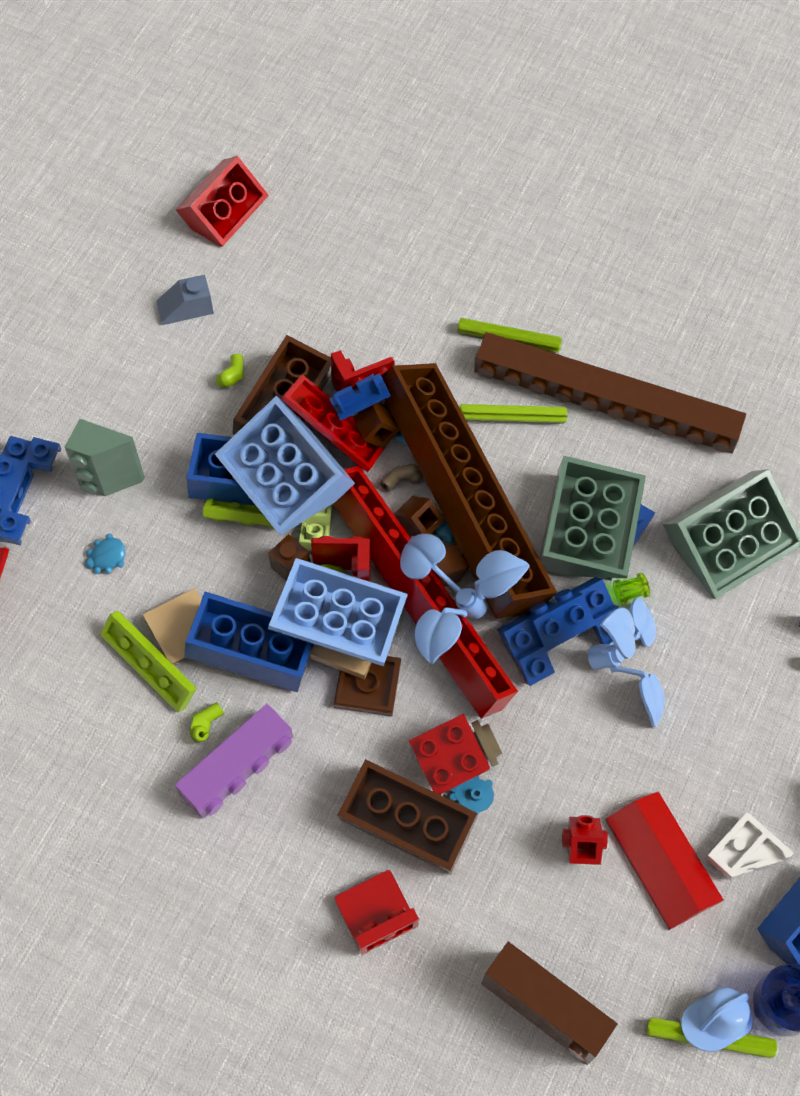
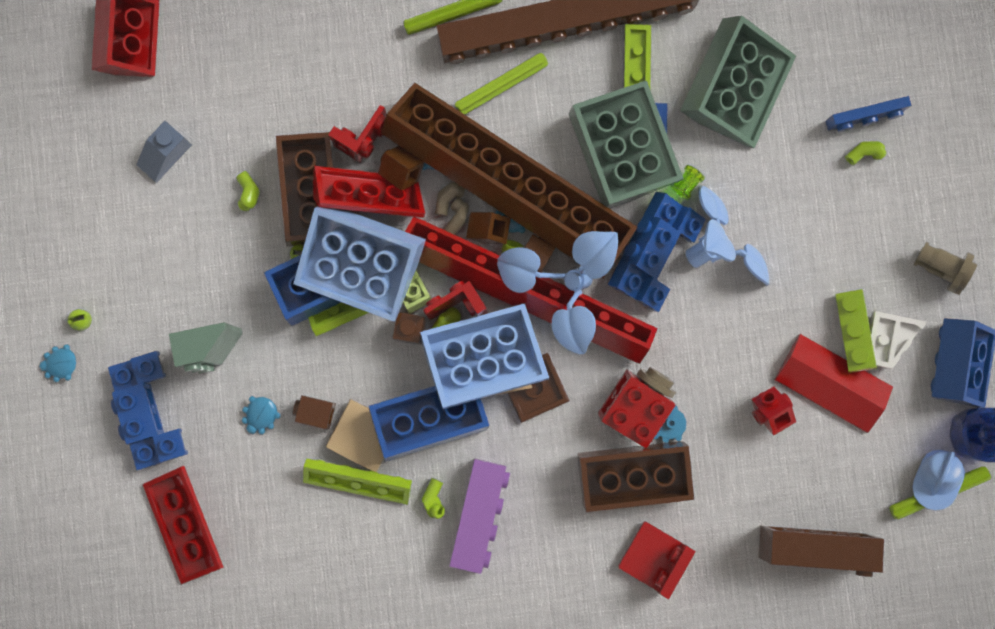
camera: 35 degrees left, 20 degrees up
(14, 392) = (81, 324): none -> lime hinge
(155, 579) = (314, 412): none -> reddish brown brick
(369, 392) = (377, 157): blue hinge -> none
(399, 497) = (459, 218): none -> dark tan arm
(654, 456) = (637, 54): none -> lime plate
(715, 819) = (856, 331): none -> lime plate

